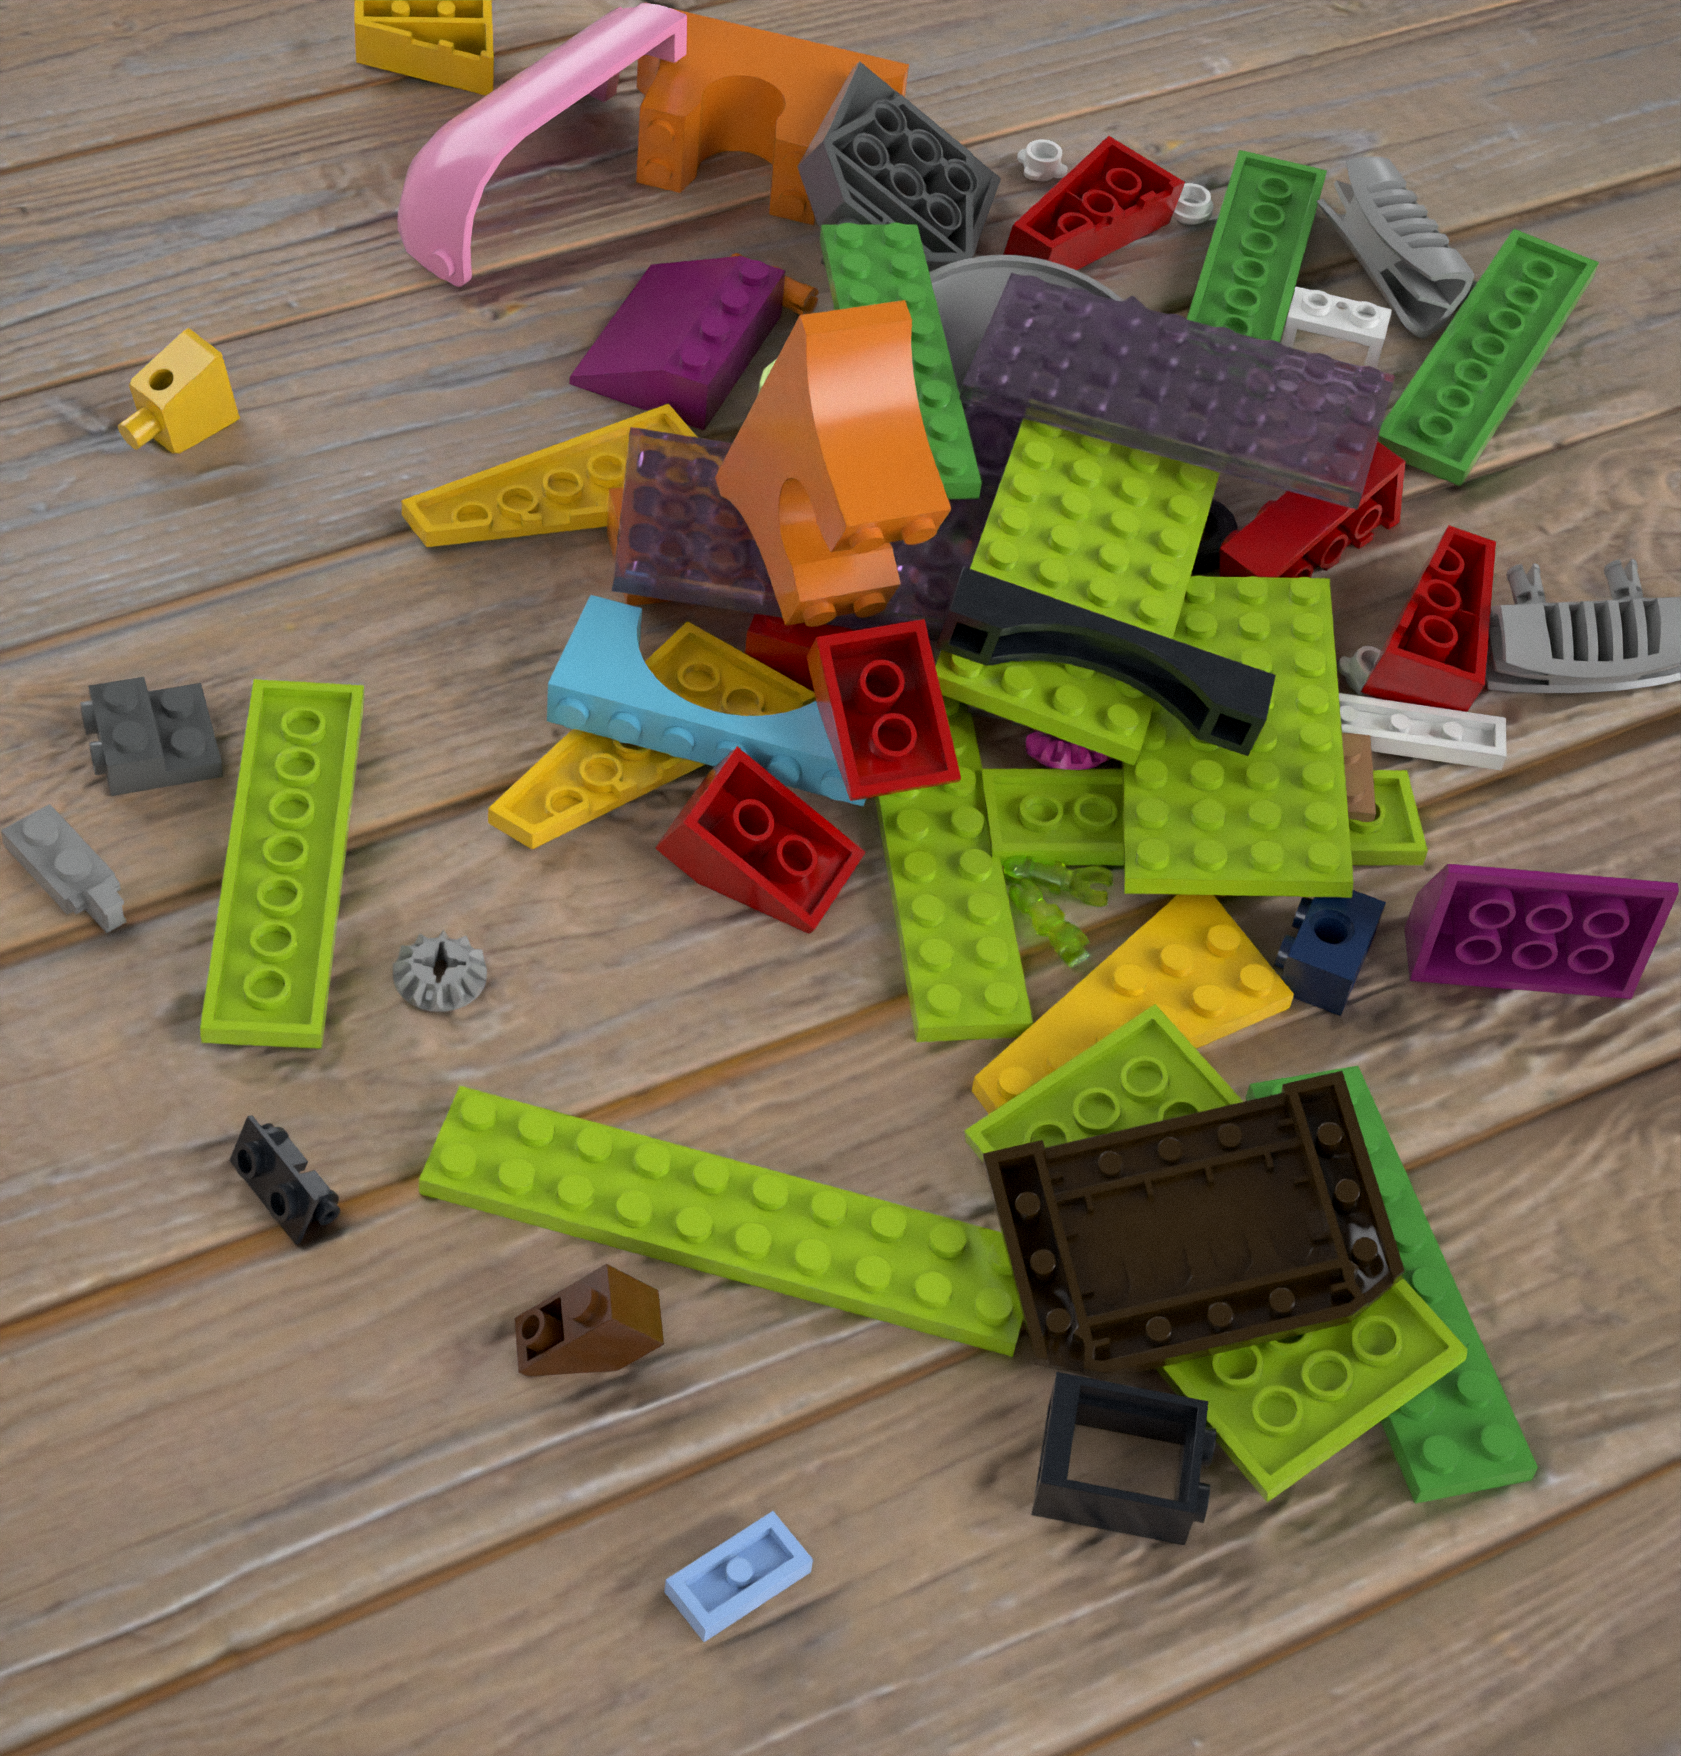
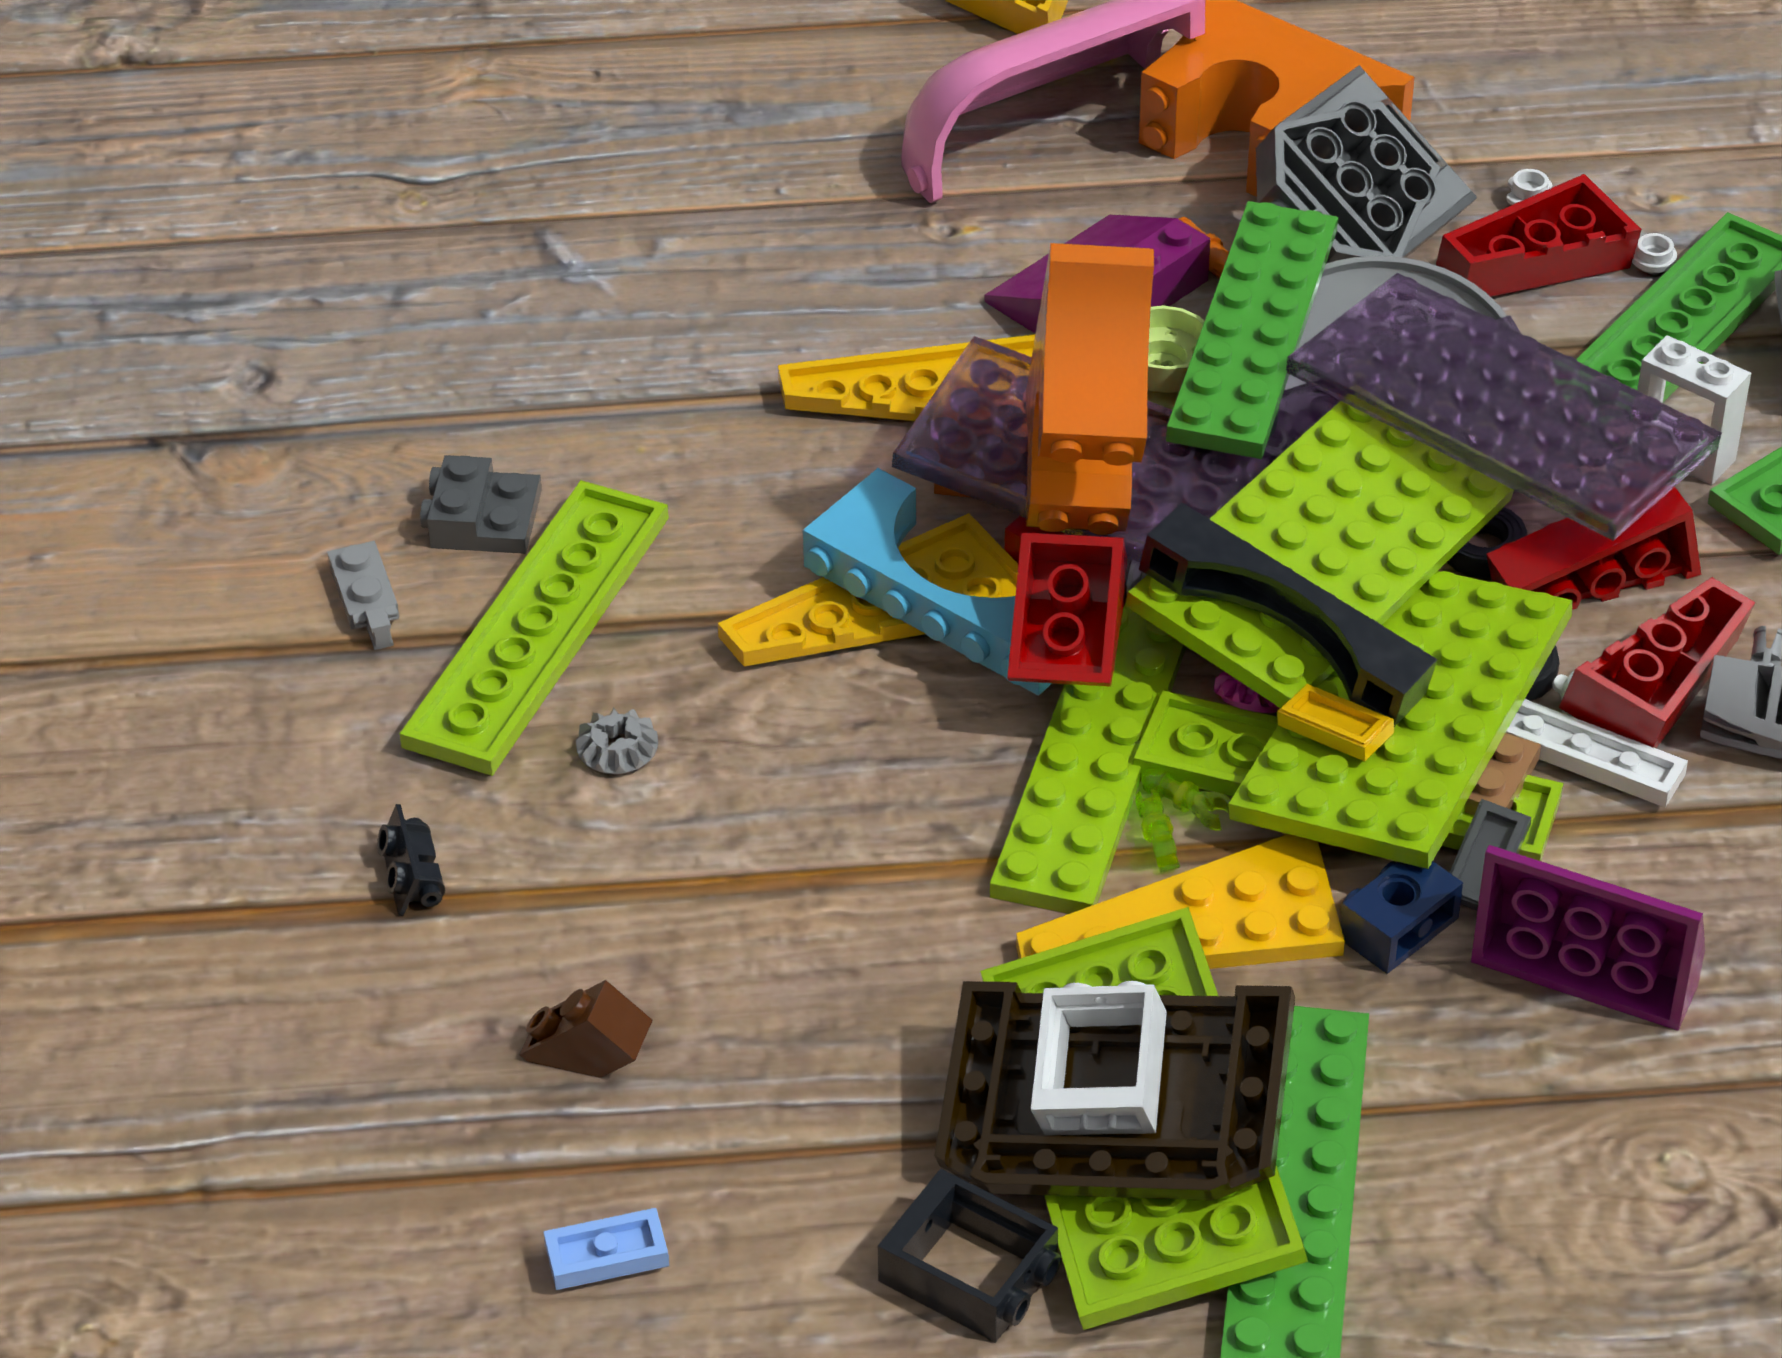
camera: 30 degrees right, 5 degrees down
(180, 396) = (634, 245): yellow torso -> none
(726, 1219) = (744, 986): lime plate -> none
(760, 844) = (932, 704): red slope -> none
(1190, 764) = (1335, 722): none -> yellow tile
(1196, 1259) = (1099, 1108): none -> white window
(1384, 861) = (1489, 826): none -> dark grey tile

